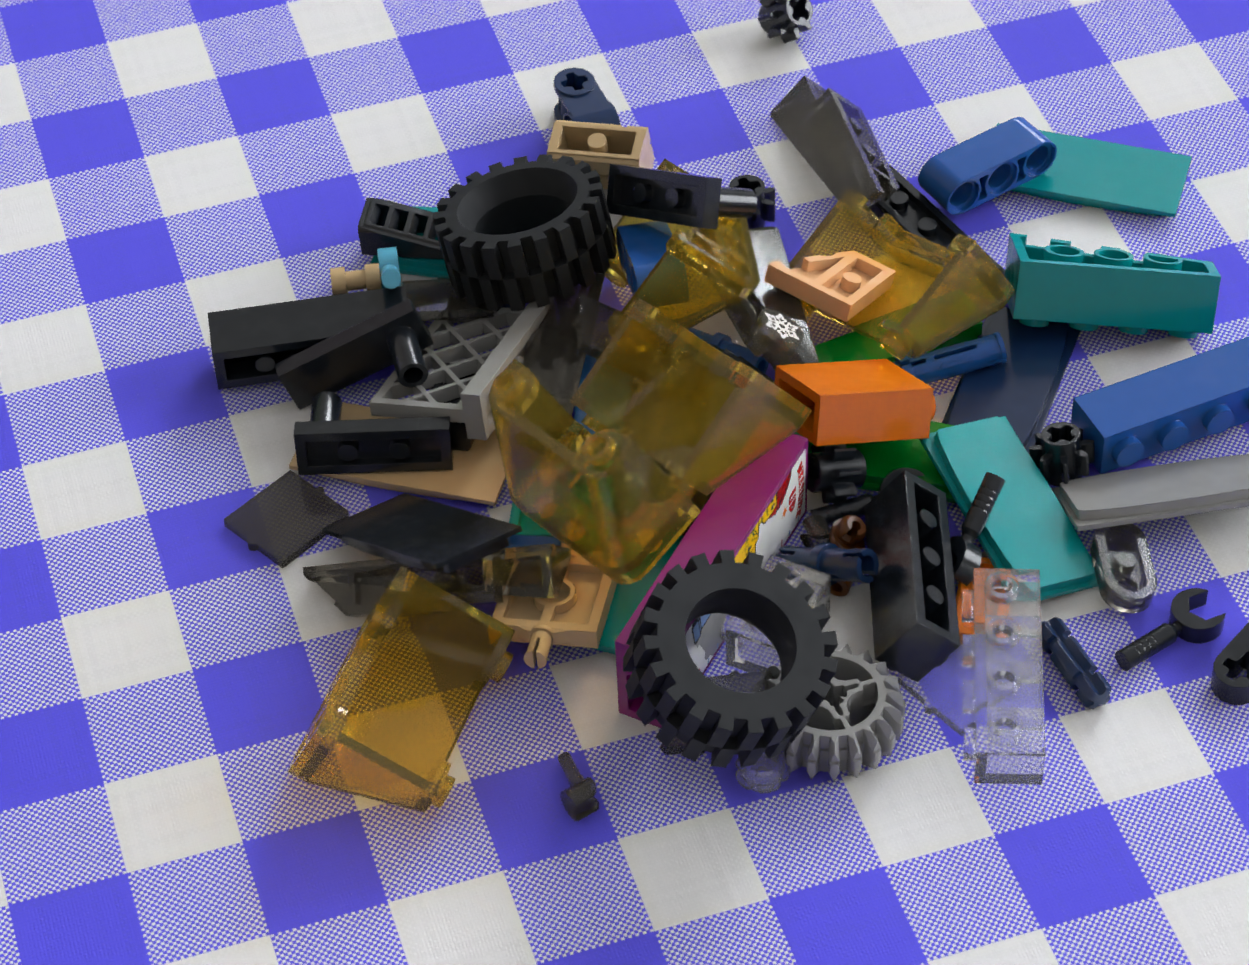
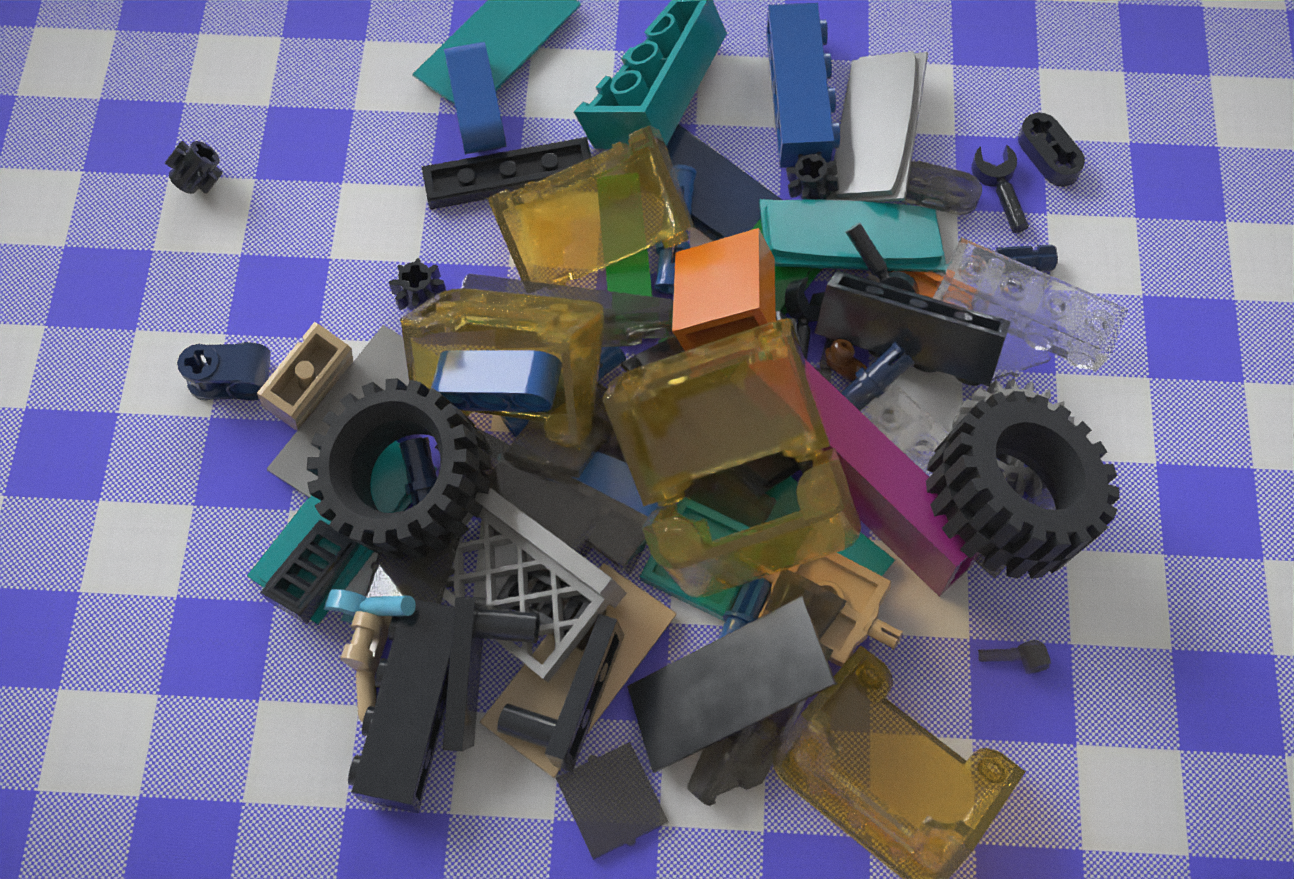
camera: 70 degrees left, 20 degrees up
(675, 197) = (453, 332): black piece -> none
(777, 333) = (640, 315): clear smoke tile -> none
(835, 141) = (388, 193): clear smoke wedge -> none
(835, 283) = (572, 254): light nougat wing -> none

